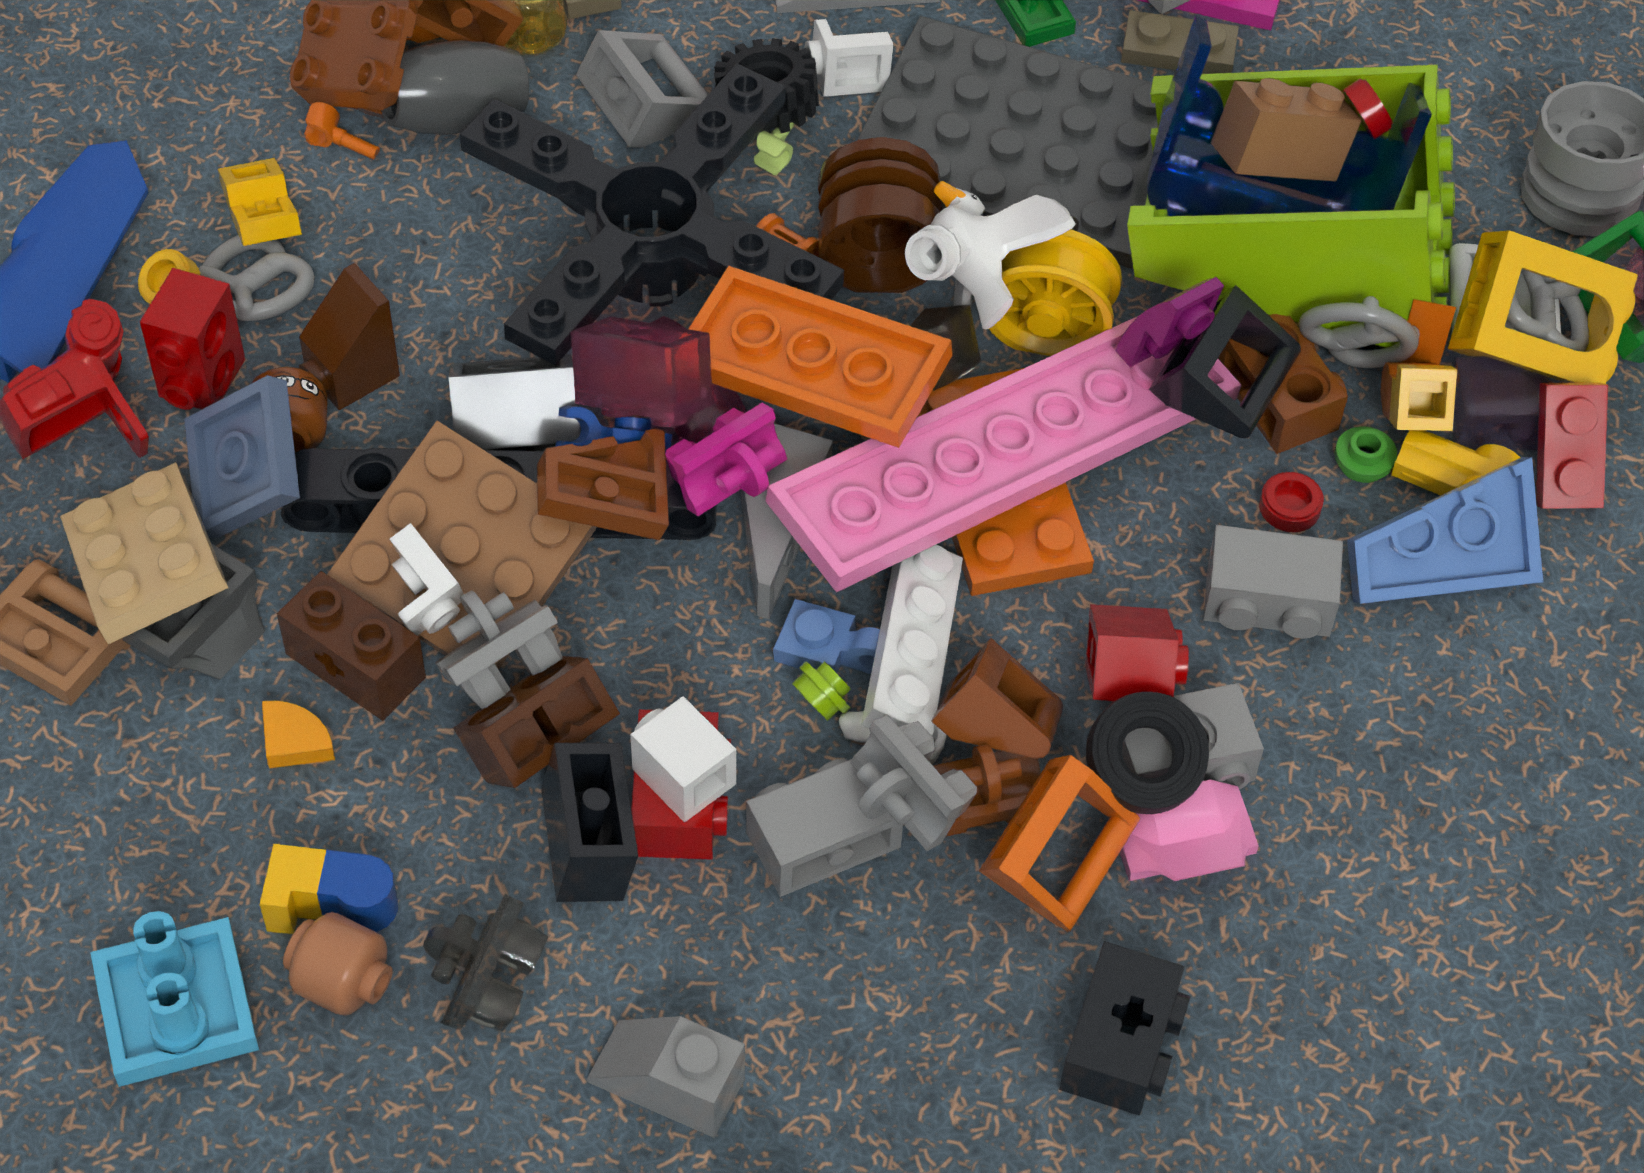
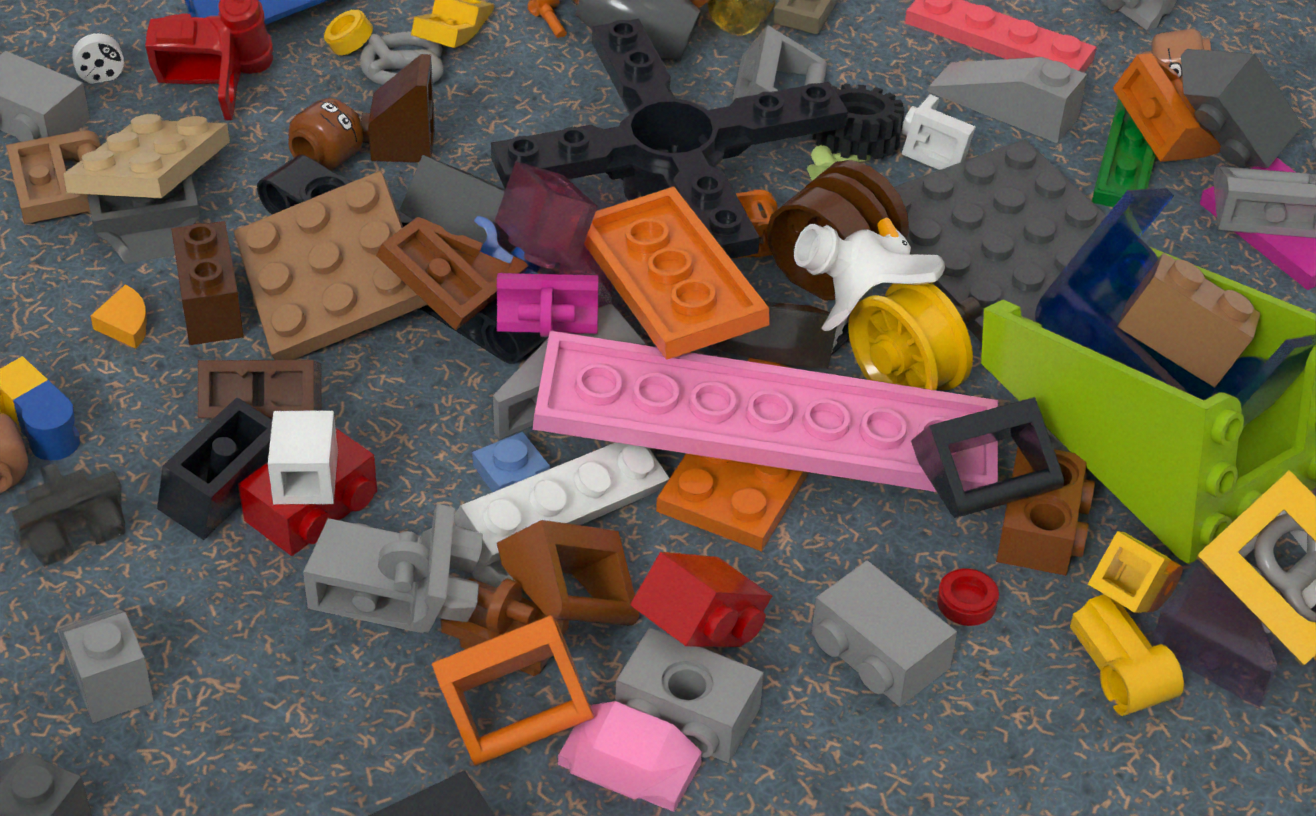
camera: 40 degrees right, 10 degrees down
(192, 340) = (306, 57): red brick -> none
(242, 456) = (255, 140): sand blue plate -> none
(423, 570) = (275, 261): white bracket -> none
(524, 631) = (305, 330): light grey hips -> none
(822, 689) = (470, 486): lime plate -> none
(1160, 39) = (1214, 251): dark tan plate -> none
(1164, 325) = (956, 390): magenta slope -> none
(1178, 726) = (640, 701): black tyre -> none
(1361, 465) = (1057, 609): bright green plate -> none
(1368, 107) = (1267, 331): red tile -> none
(1375, 327) = (1134, 500): light grey piece -> none
(1434, 326) = (1186, 535): orange sticker -> none
(1454, 543) = (1063, 697): medium blue wing -> none
(1571, 445) = (1236, 688): plate -> none

